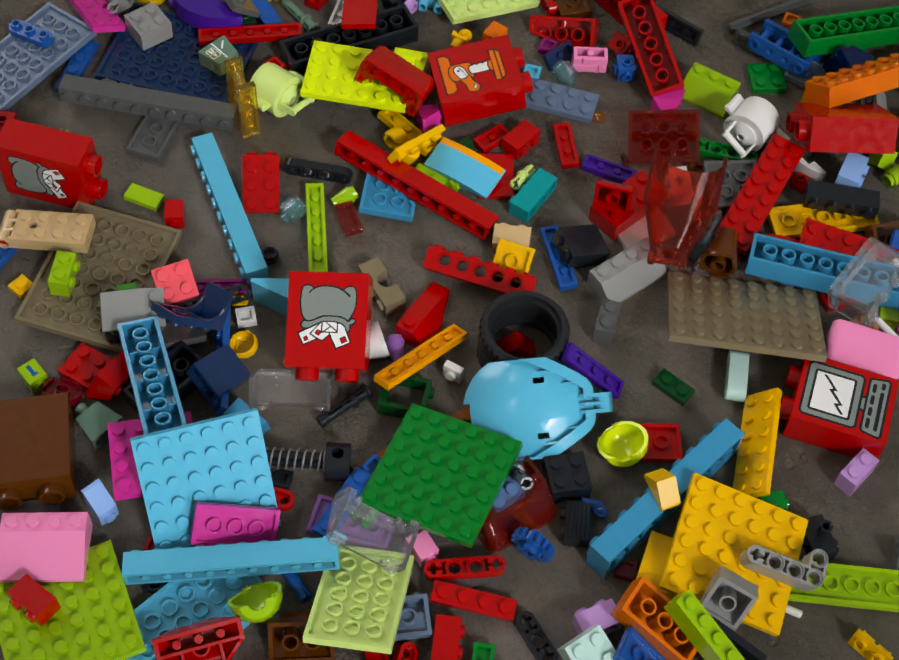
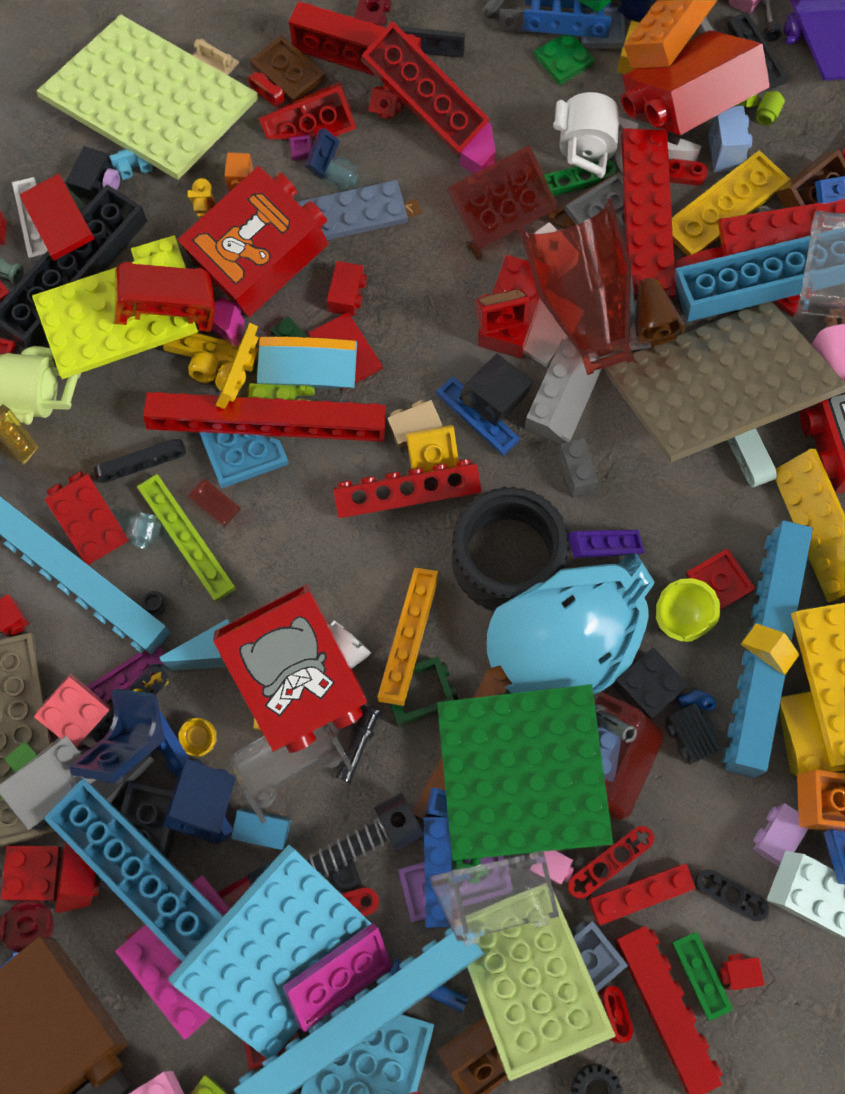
camera: 25 degrees left, 15 degrees up
(93, 422) = (93, 940): sand green torso -> none
(100, 502) = (164, 1041): light blue slope -> none
(246, 317) = (177, 698): white plate -> none
(257, 601) = (421, 1055): lime cylinder -> none
(345, 195) = (192, 476): lime cone -> none
(386, 299) = (323, 581): dark tan arch -> none
(395, 346) = (370, 636): medium lavender cone -> none
(424, 316) = (379, 583): red wedge -> none
(453, 371) = (451, 629): white plate -> none
(490, 138) = (311, 305): red plate -> none
(517, 345) = (499, 556): red slope -> none
(522, 176) = (377, 335): yellowish green axle -> none
(532, 195) = (401, 353): teal brick -> none
(533, 544) = (667, 792): blue gear -> none
(534, 70) = (305, 190): medium azure tile -> none
(565, 145) = (399, 267): red plate -> none
(590, 59) = (361, 140): bright pink brick -> none
(606, 169) = (463, 272): dark purple tile -> none
(624, 71) = (406, 130): blue brick -> none
(626, 571) = (778, 754): dark red tile -> none
(673, 387) = (691, 504): dark green plate -> none
(709, 89) = (515, 106): lime slope -> none
(841, 199) = (737, 171): black brick -> none

